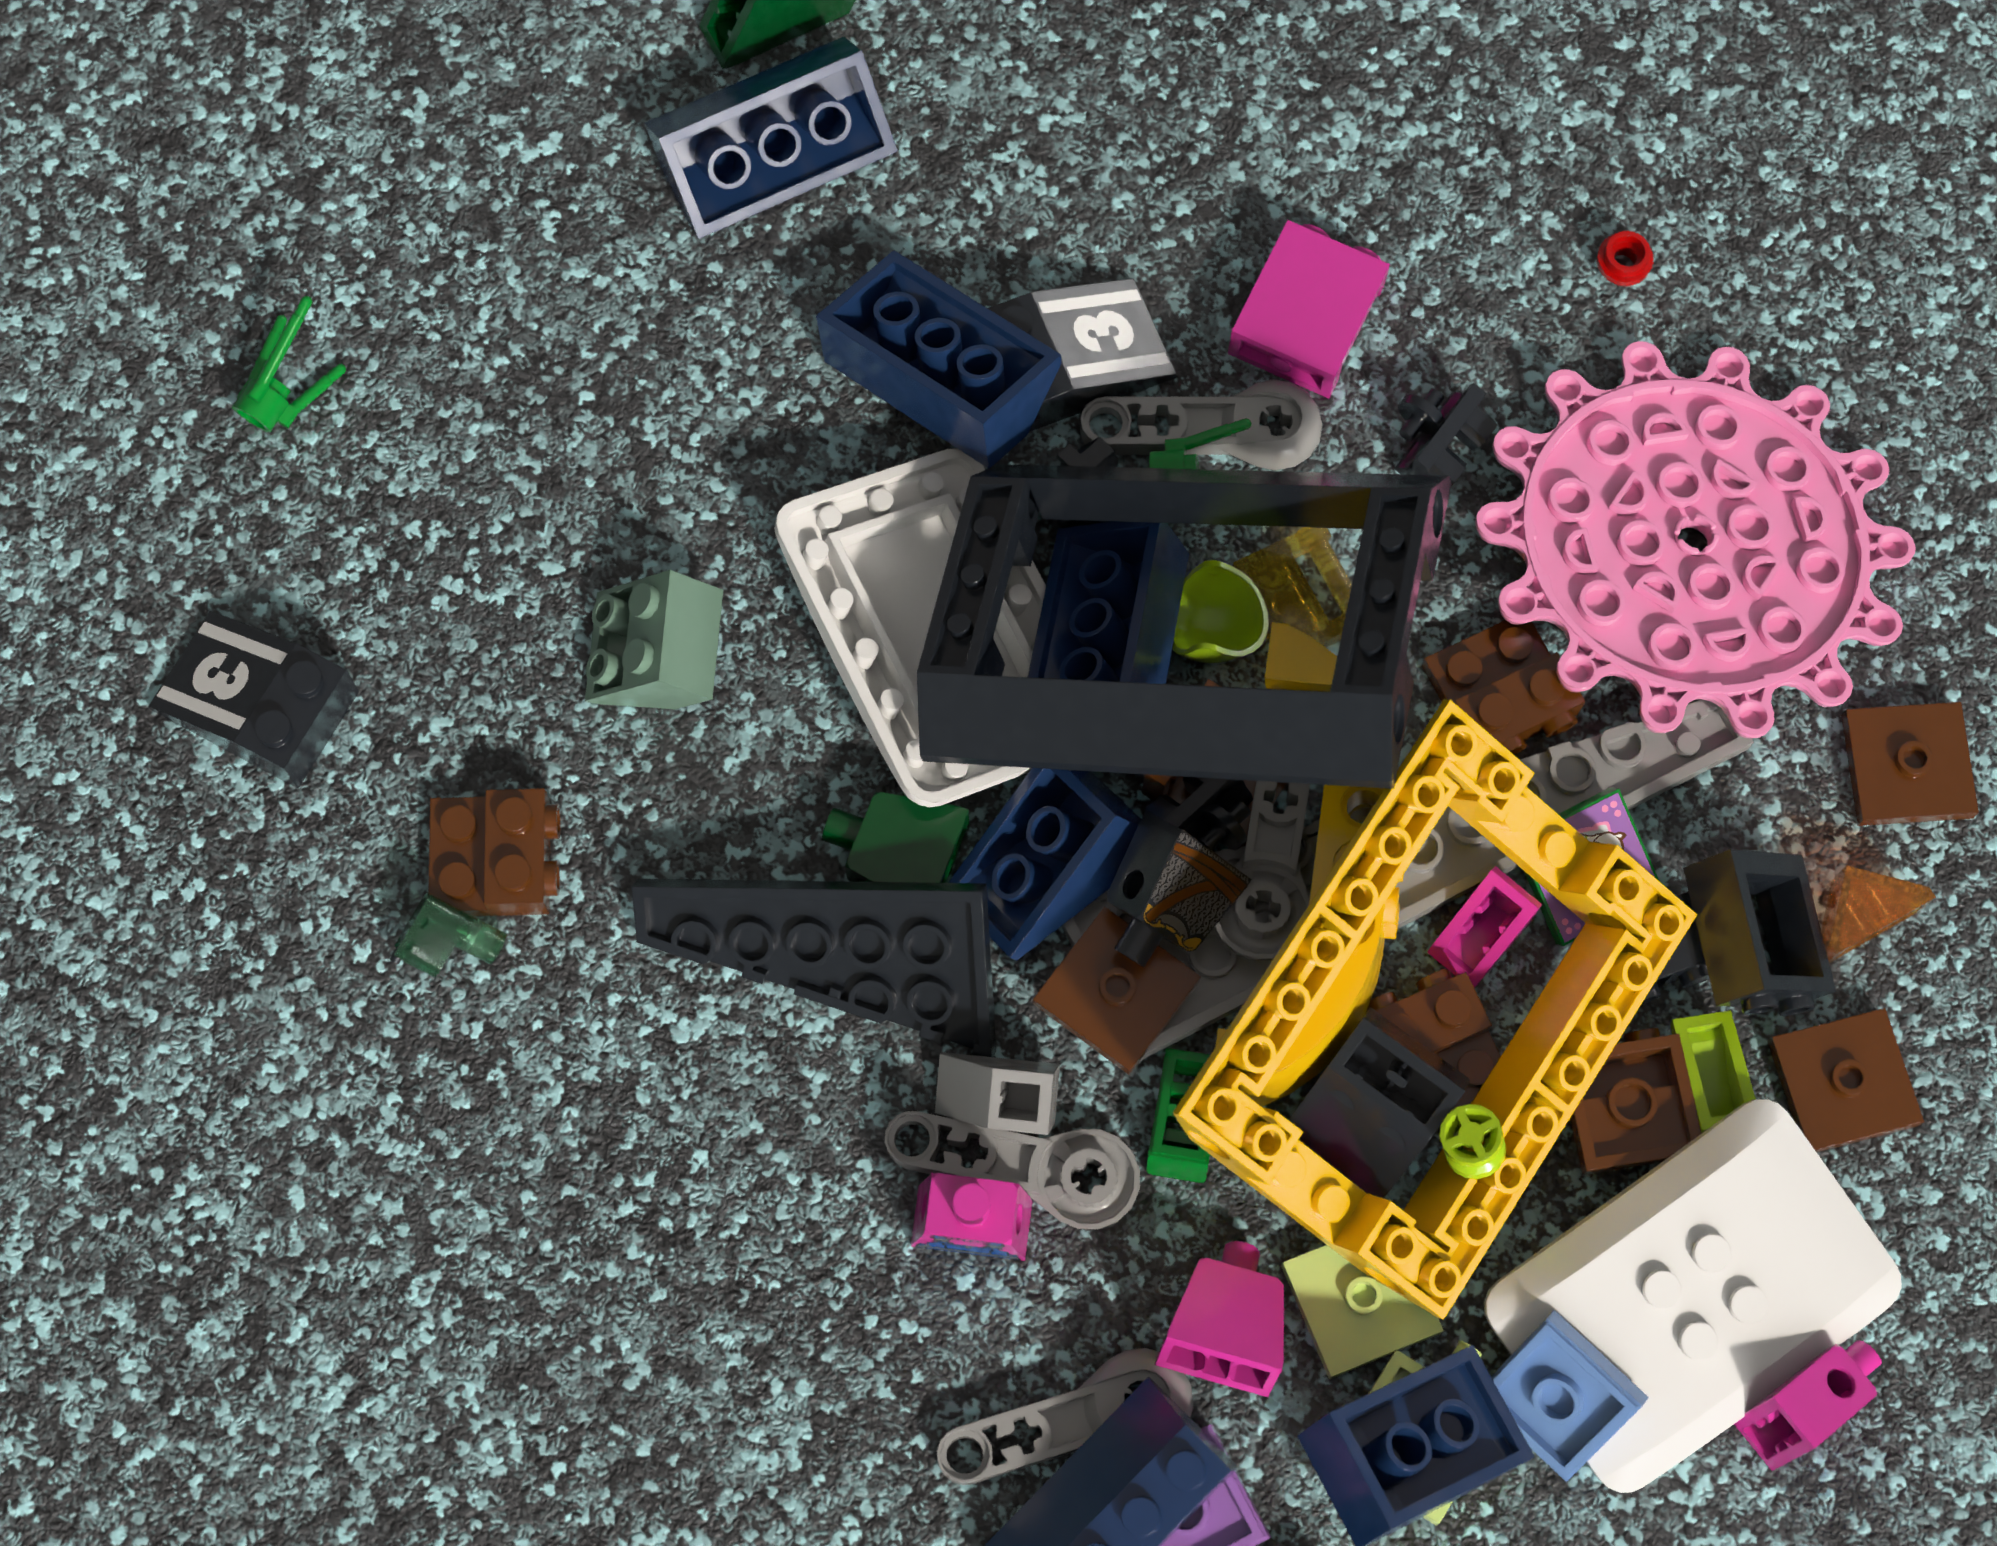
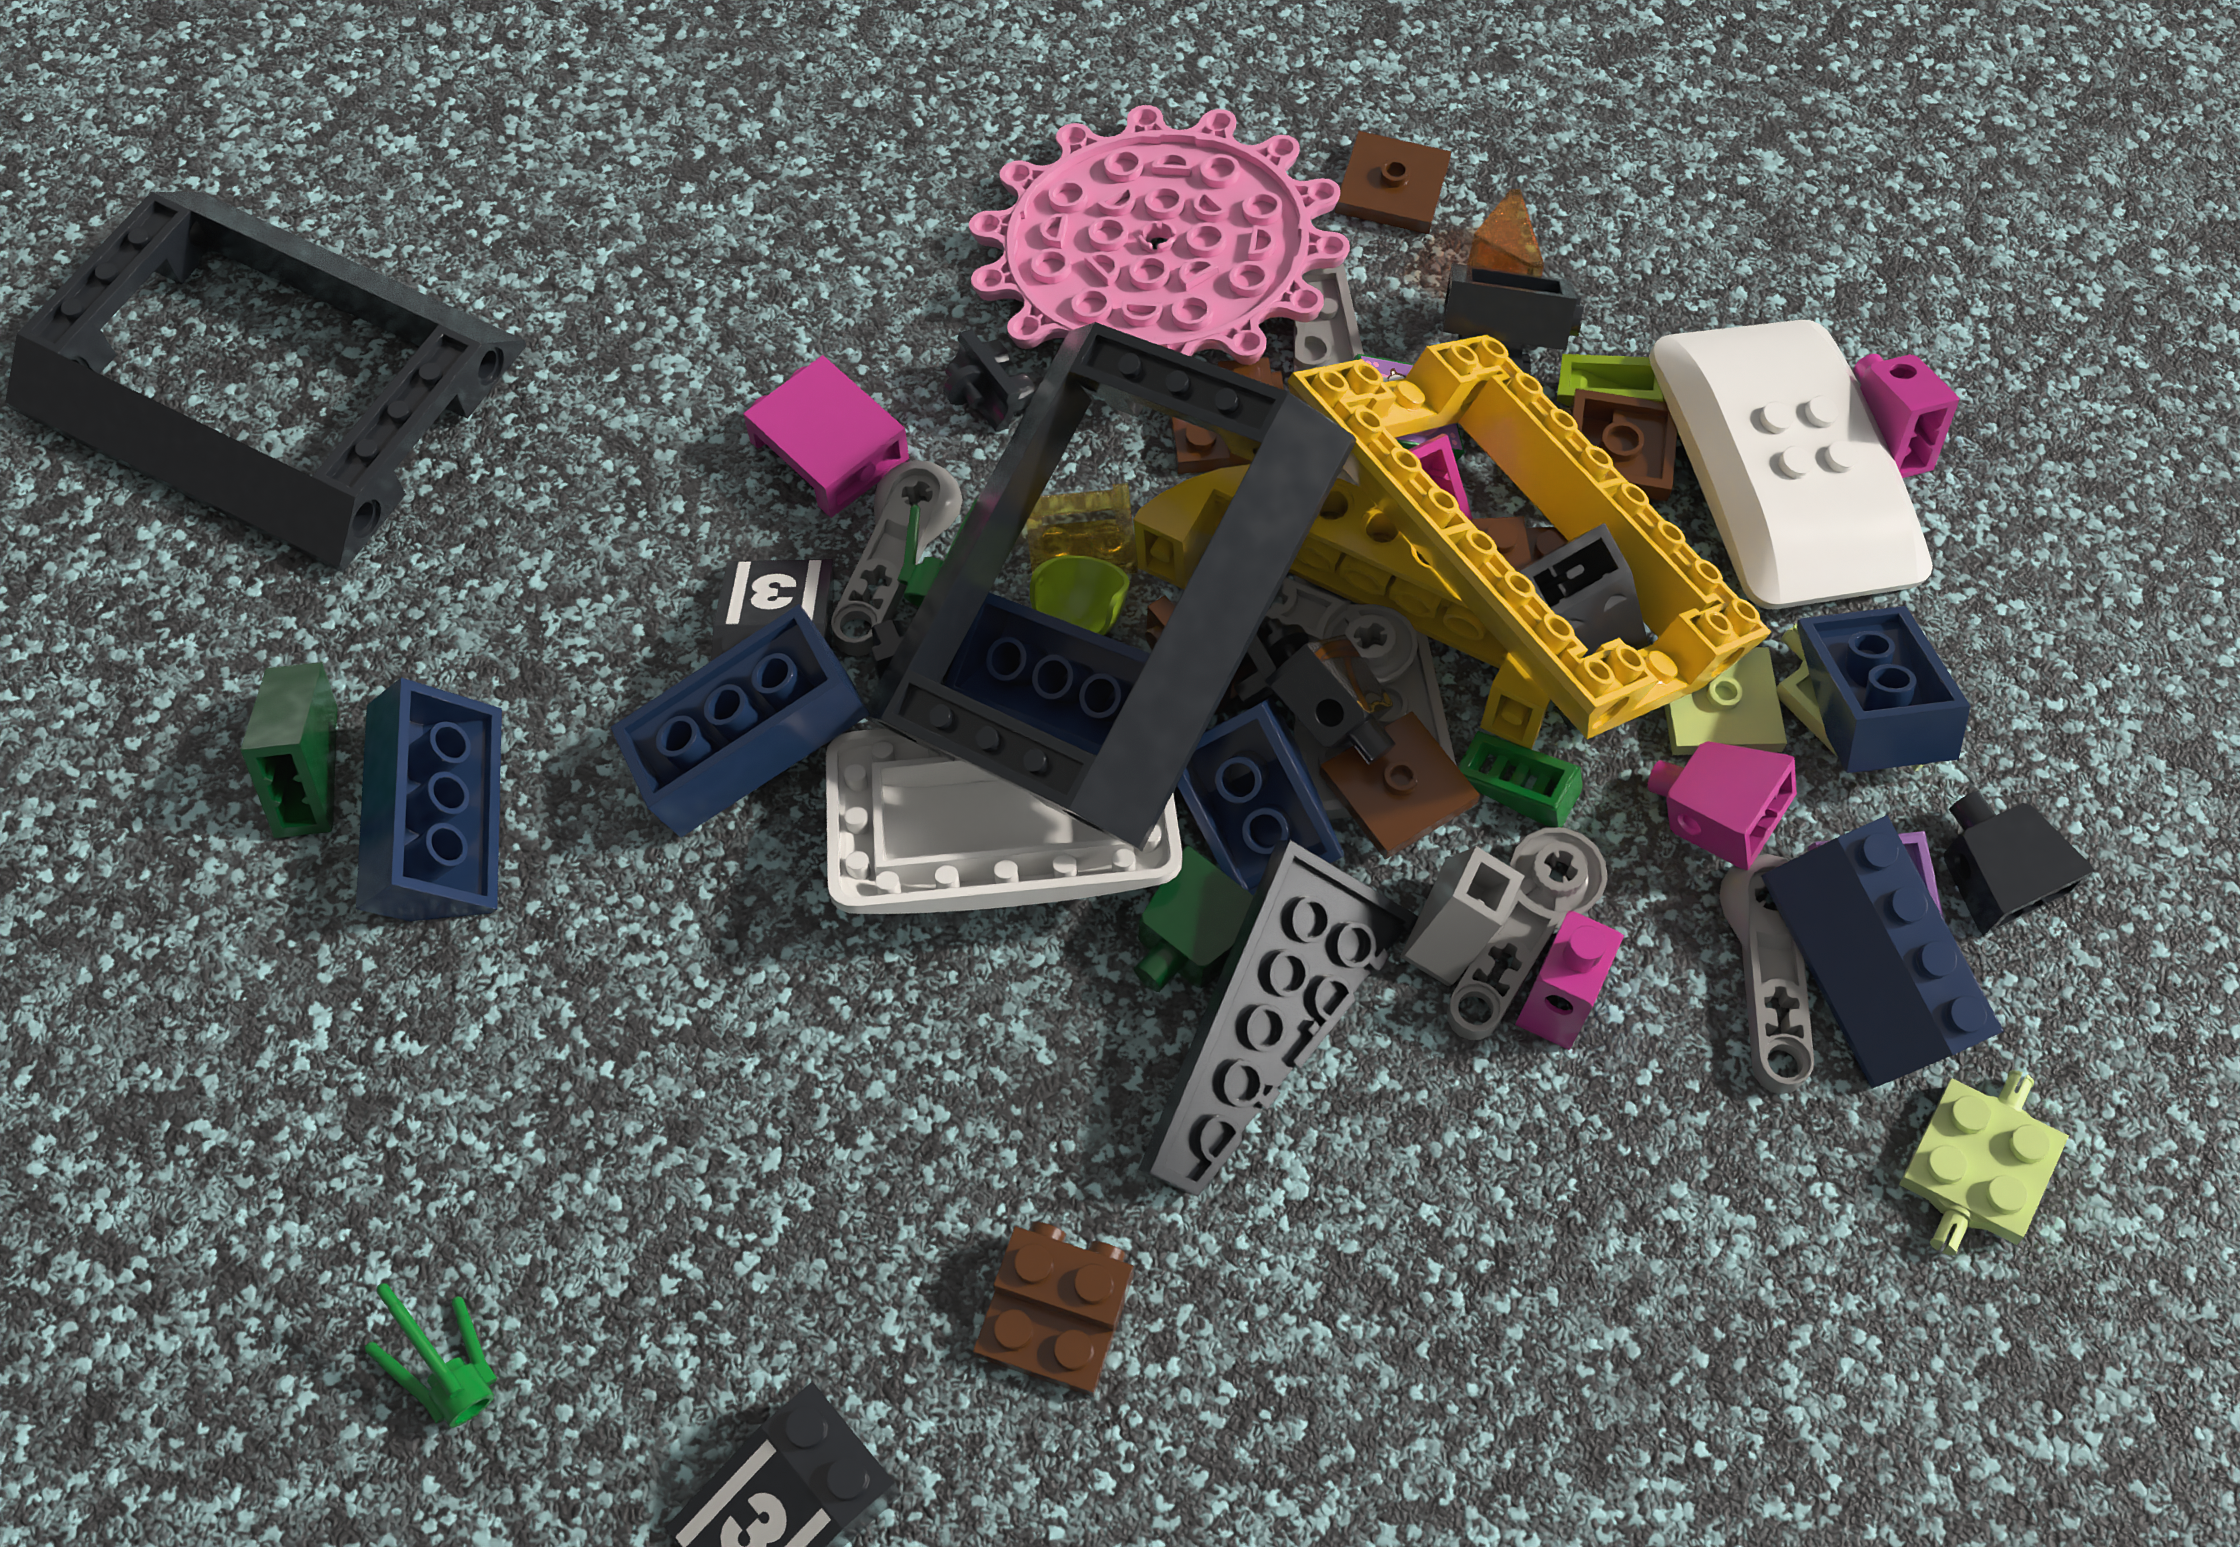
camera: 70 degrees left, 10 degrees down
(439, 928) = (1122, 1387): clear green piece -> none
(654, 643) = (900, 1079): sand green slope -> none
(1469, 1127) = (1644, 526): lime wheel -> none
(1565, 1395) = (1854, 565): medium blue tile -> none
(1629, 245) = (889, 209): red plate -> none
(1846, 1080) = (1633, 307): reddish brown plate -> none

